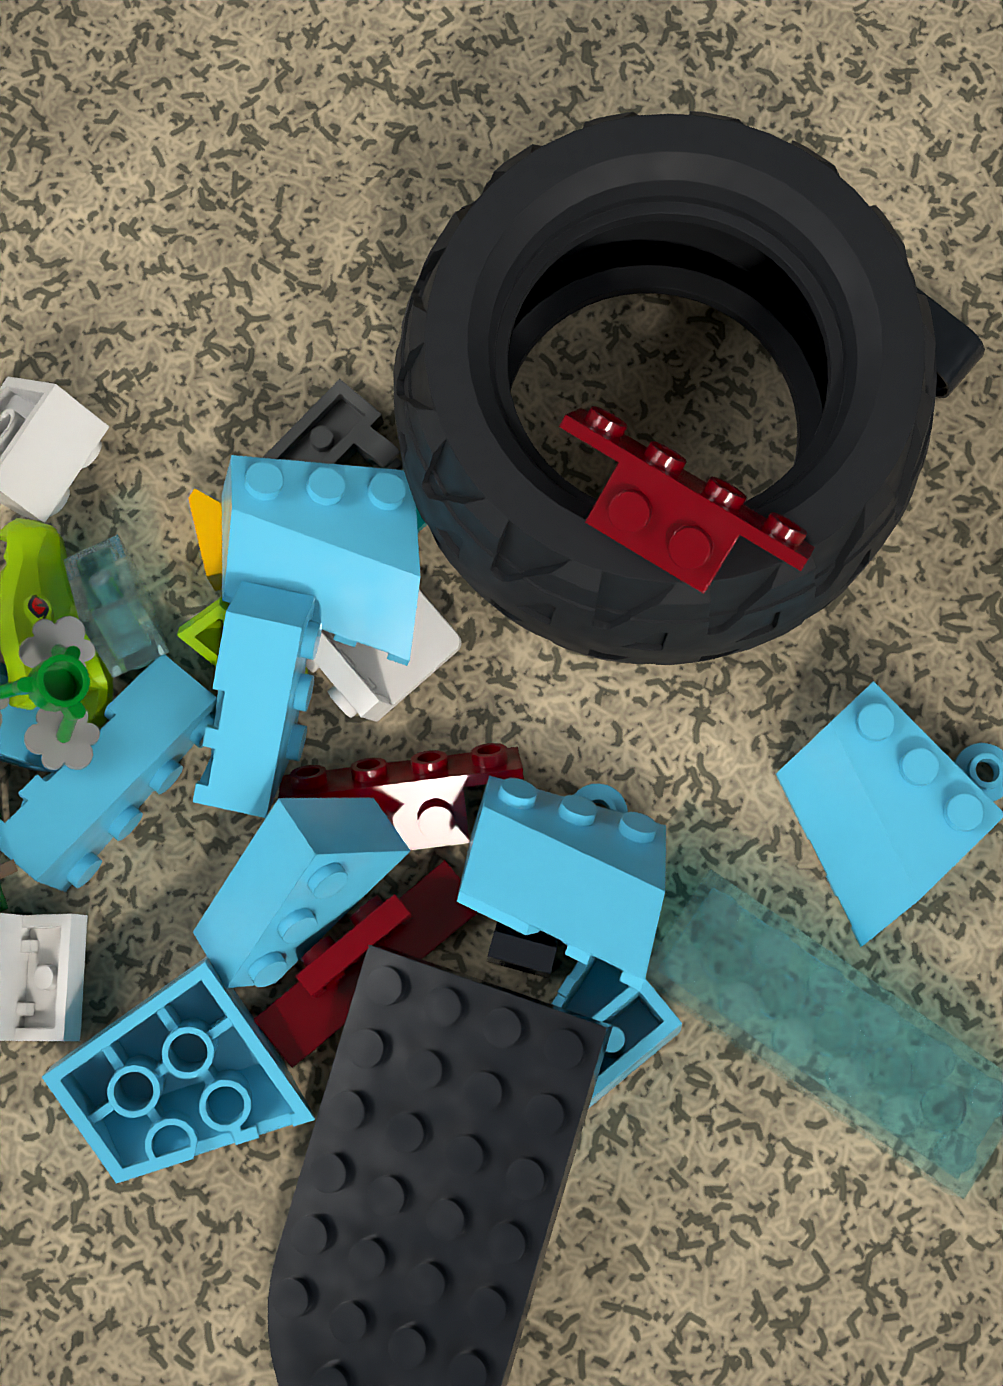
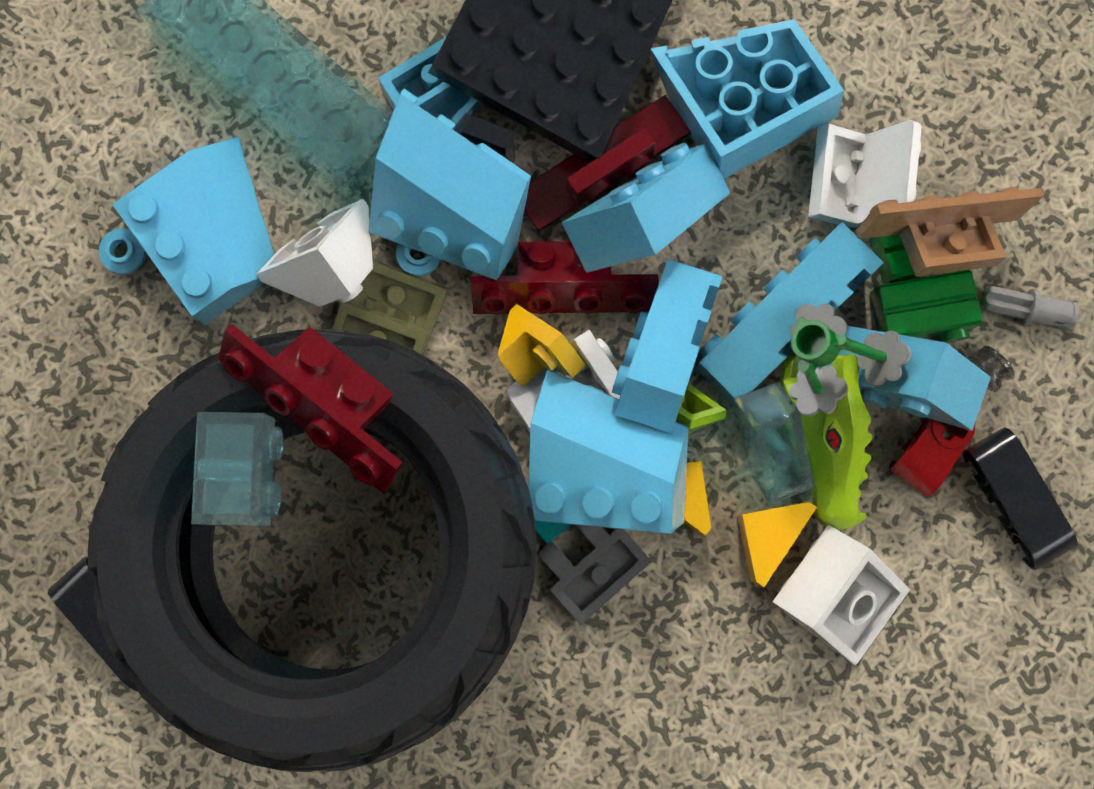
camera: 165 degrees left, 5 degrees up
(113, 503) = (769, 536): none -> yellow slope
(433, 695) = (532, 345): none -> yellow slope
(626, 729) = (394, 307): none -> olive slope
(714, 784) = (325, 261): none -> white slope
(765, 405) = (235, 469): none -> clear light blue brick

